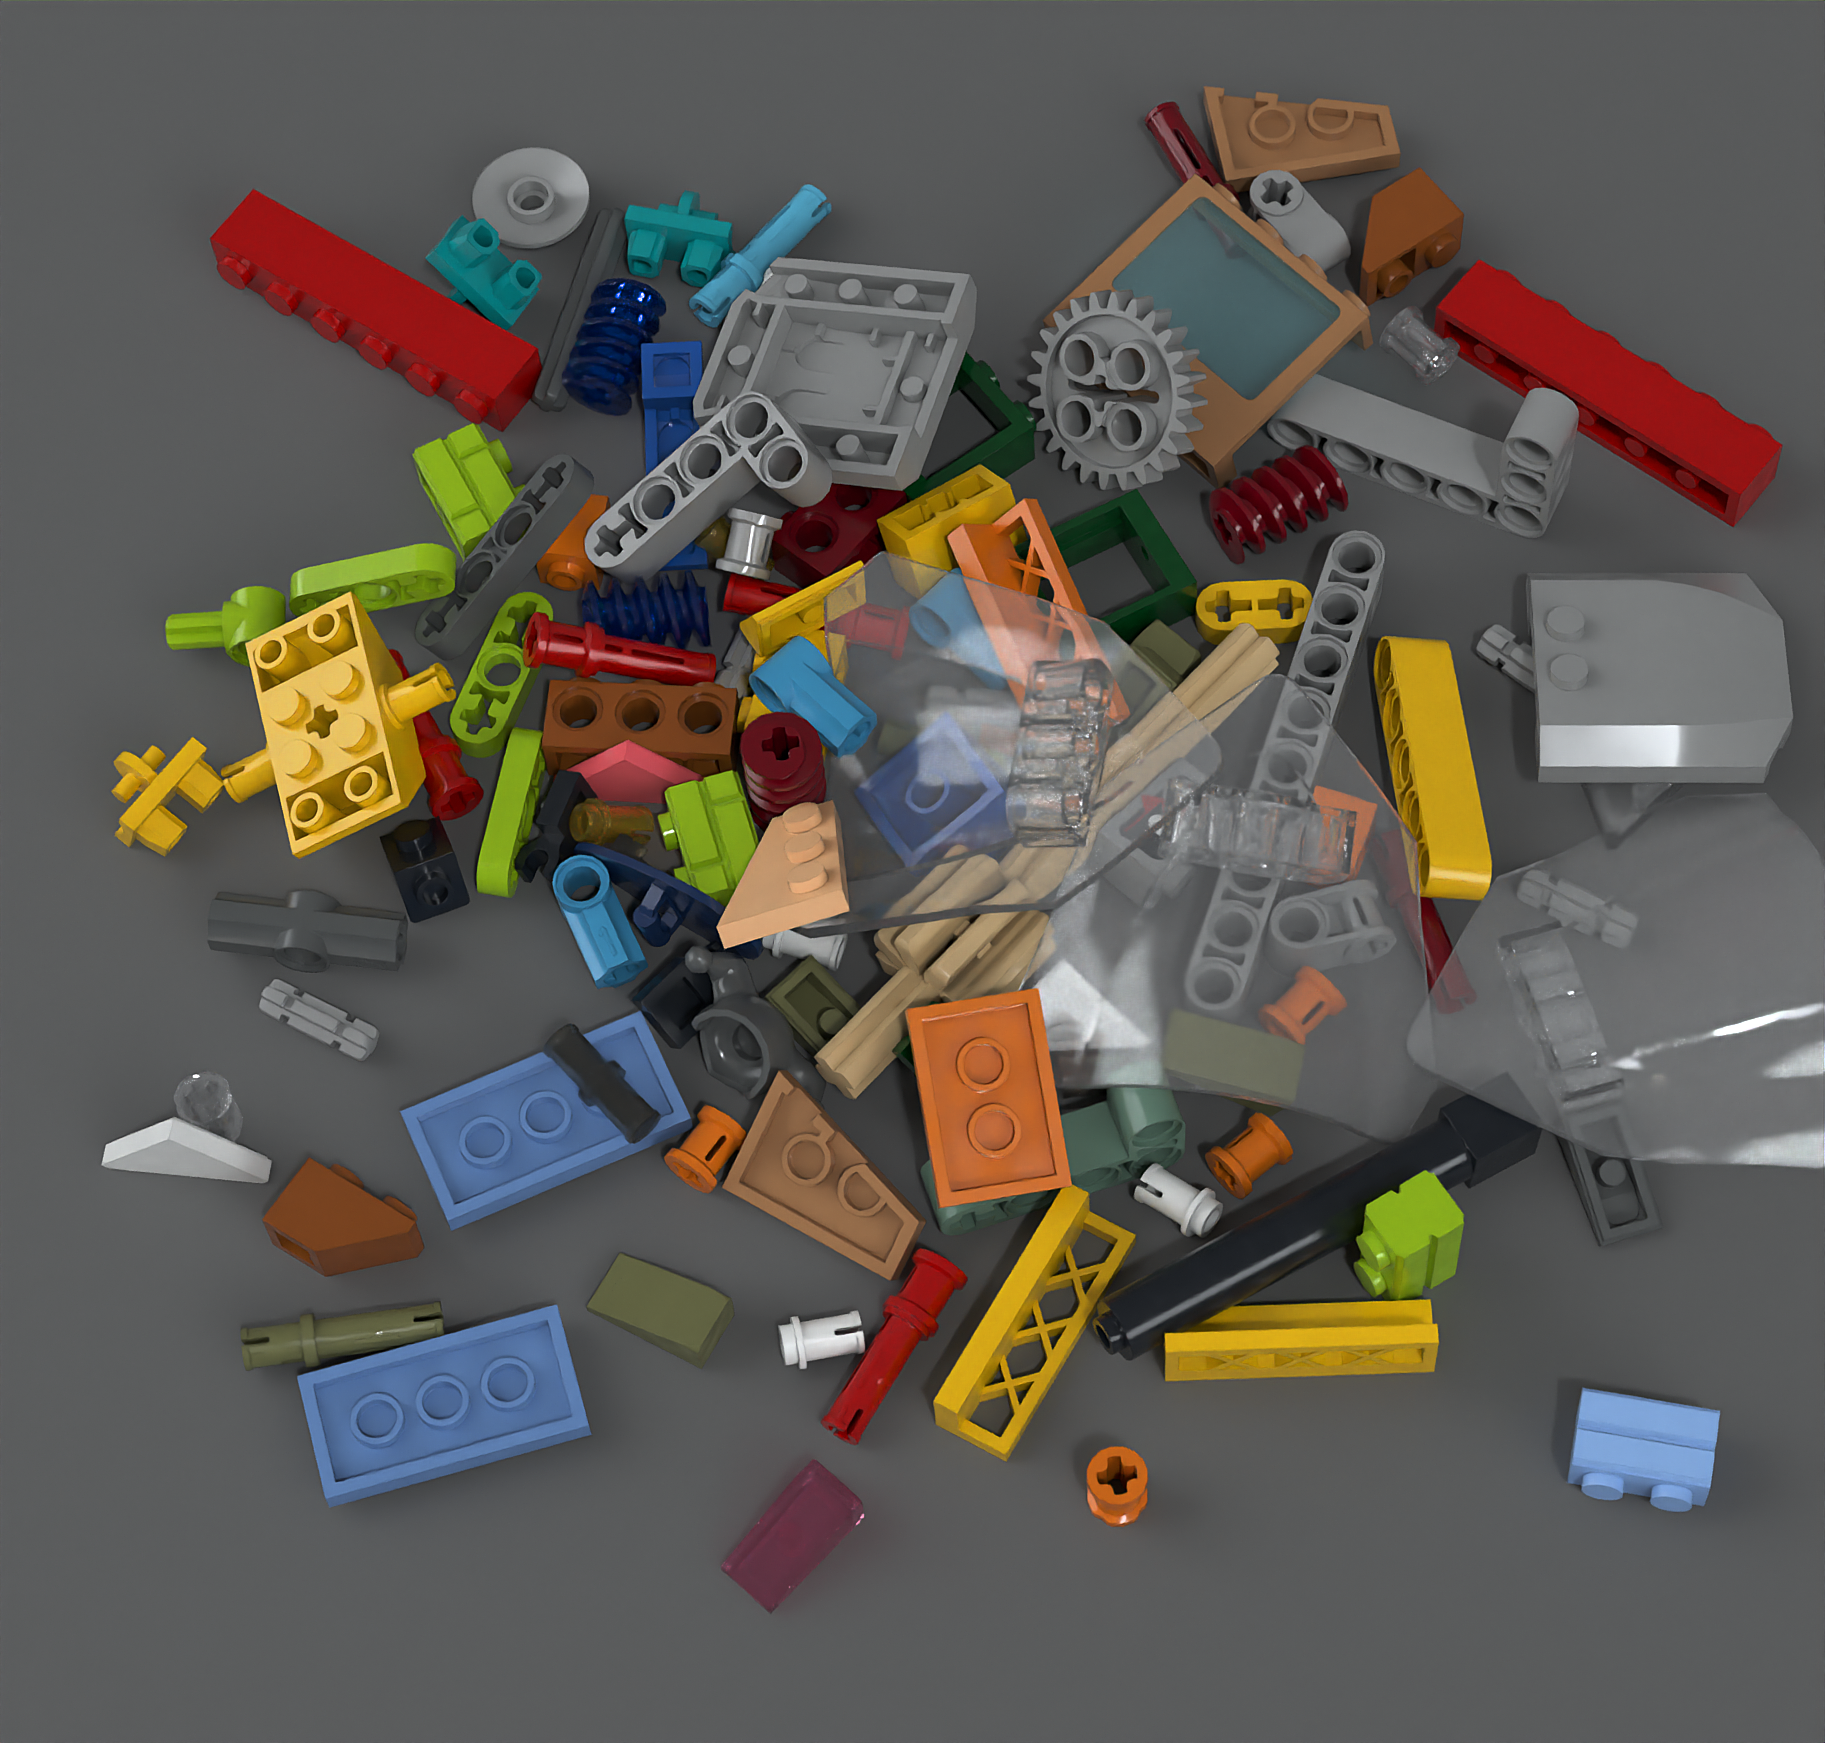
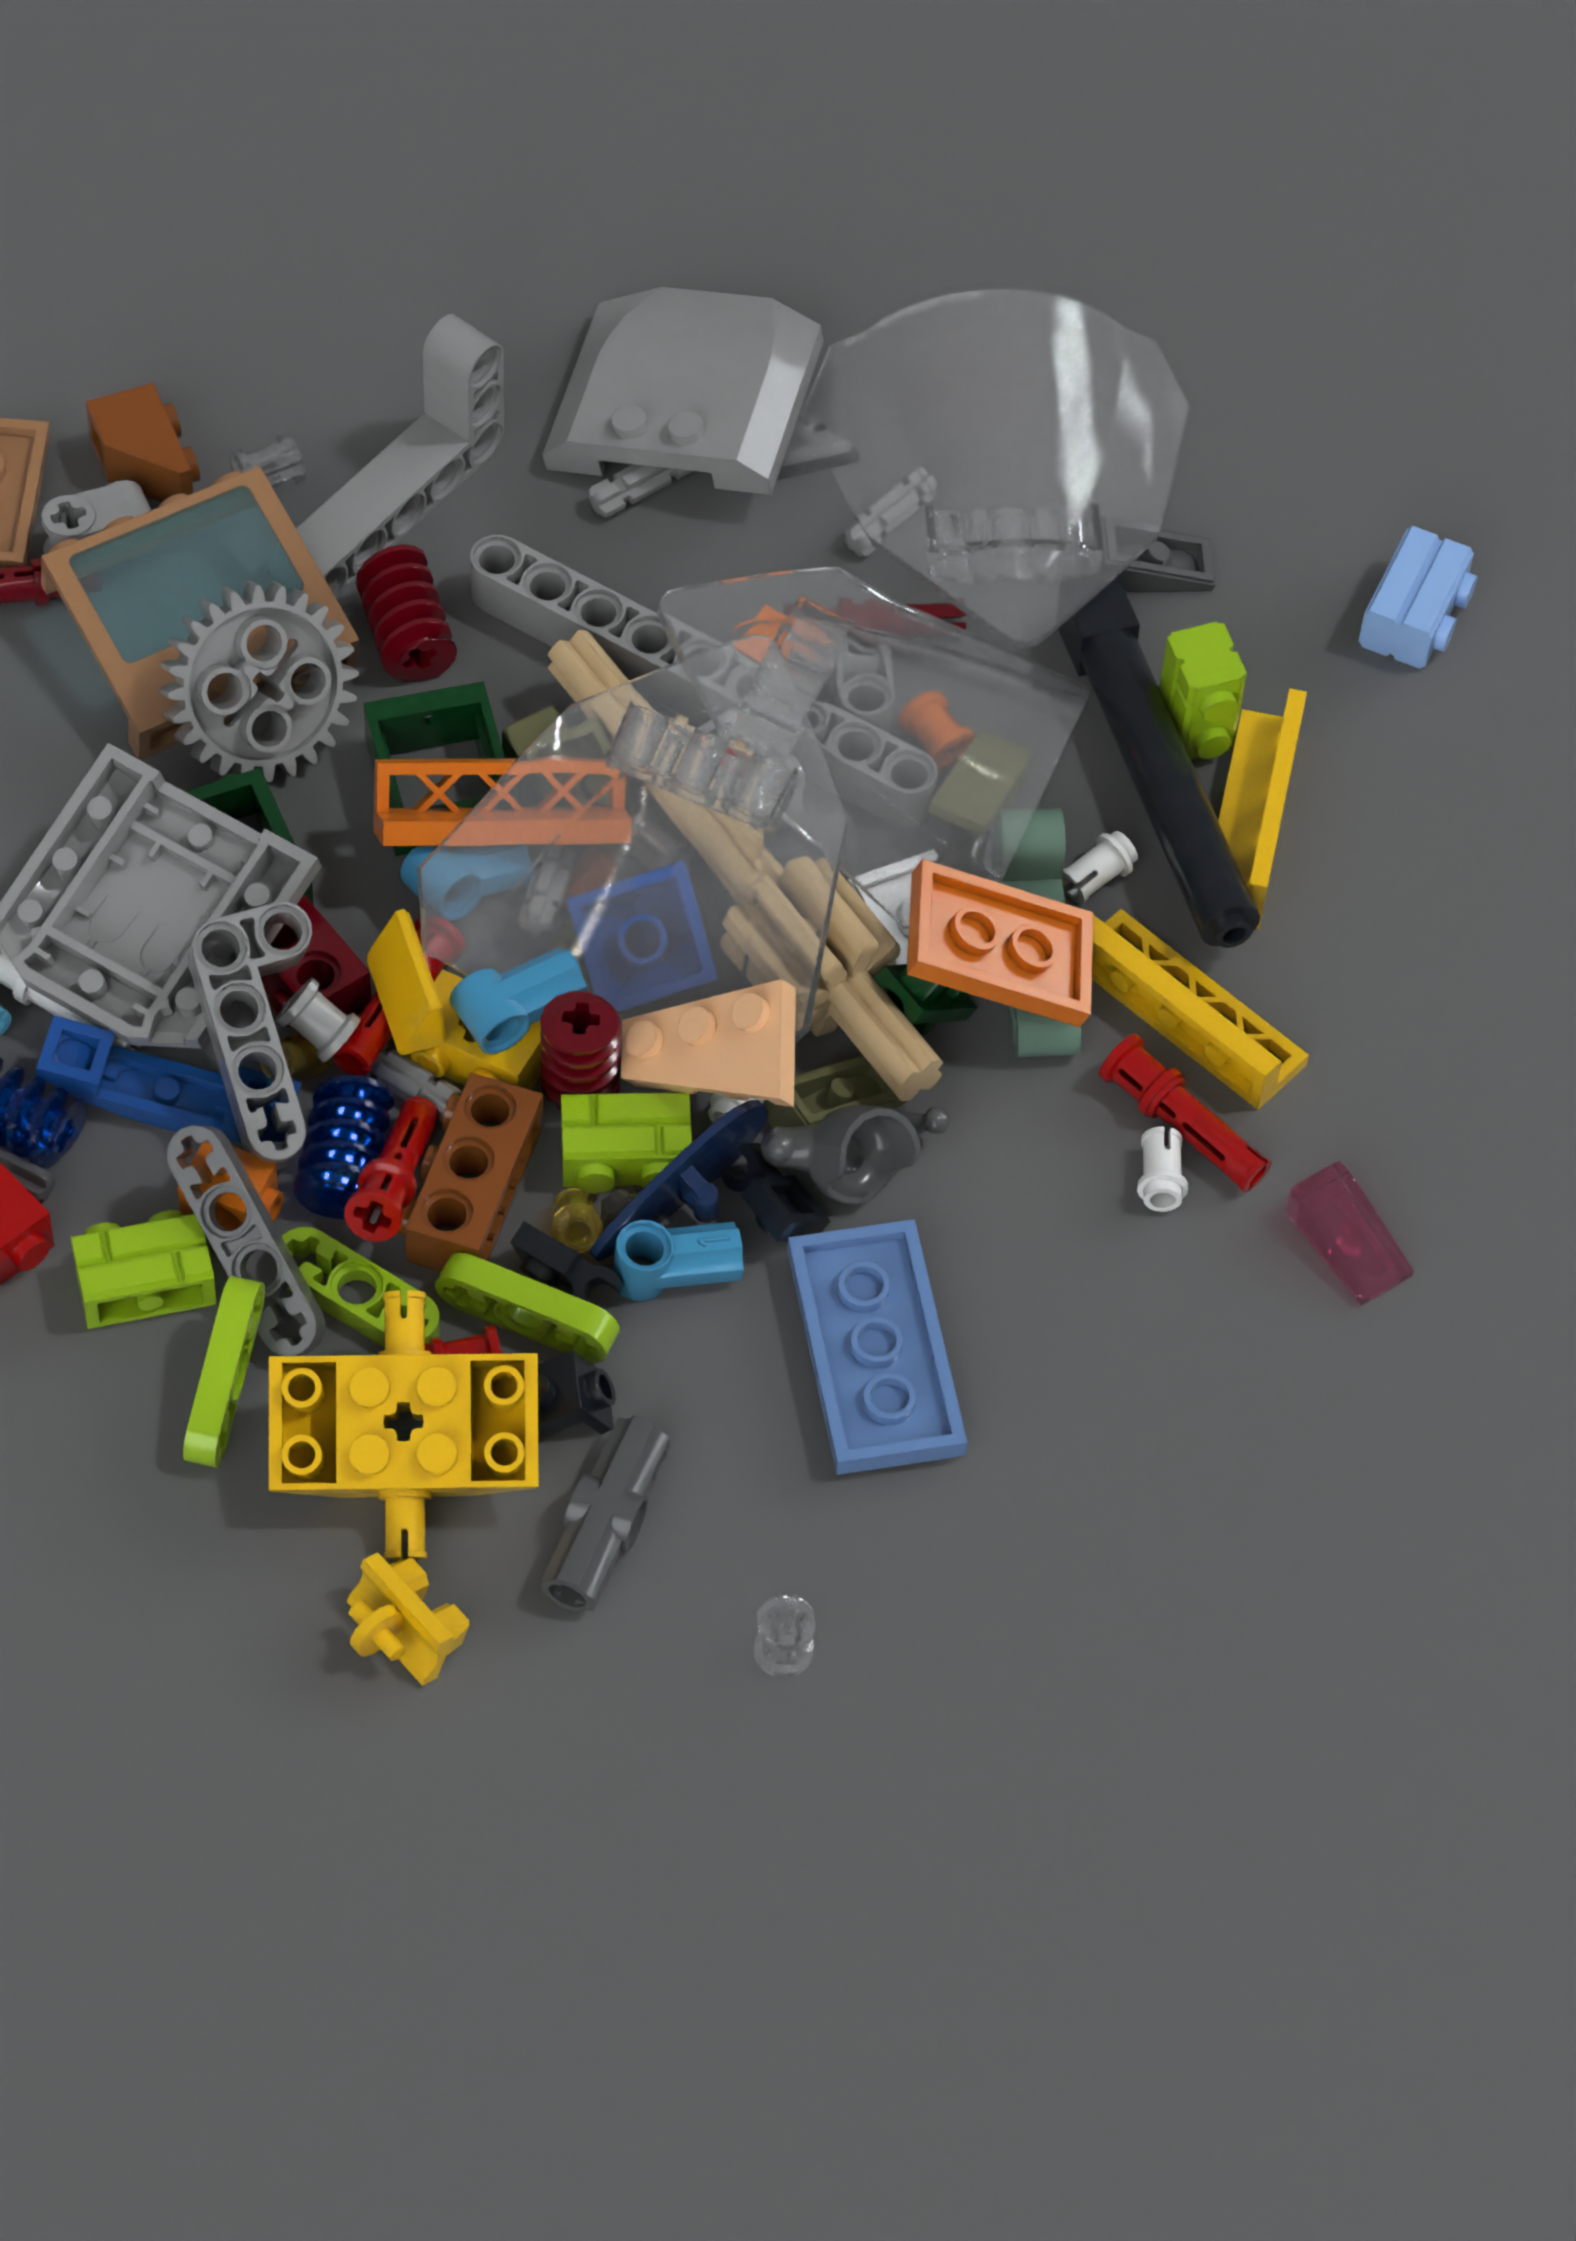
camera: 85 degrees left, 5 degrees down
(186, 1150) = (819, 1676): white tile -> none
(243, 618) = (222, 1509): lime axle -> none
(319, 1020) = (704, 1526): light grey axle -> none
(339, 1226) = (939, 1544): dark orange slope -> none
(340, 1335) = (1057, 1586): olive pin -> none
(443, 1405) = (1154, 1490): medium blue plate -> none
(601, 1083) = (870, 1272): clear smoke pin -> none
(632, 774) = (521, 1198): coral tile -> none
(663, 1308) = (1097, 1291): olive slope -> none
(706, 1149) = (947, 1217): orange bush -> none
(822, 1183) = (1013, 1128): medium nougat wing -> none
(922, 525) = (358, 874): yellow brick -> none
(1121, 1464) = (1375, 972): orange bush -> none
(1249, 1155) = (1081, 812): orange bush -> none
(1253, 604) = (519, 669): yellow beam -> none
(1432, 766) = (660, 555): yellow beam -> none
(1620, 398) = (370, 344): red brick -> none

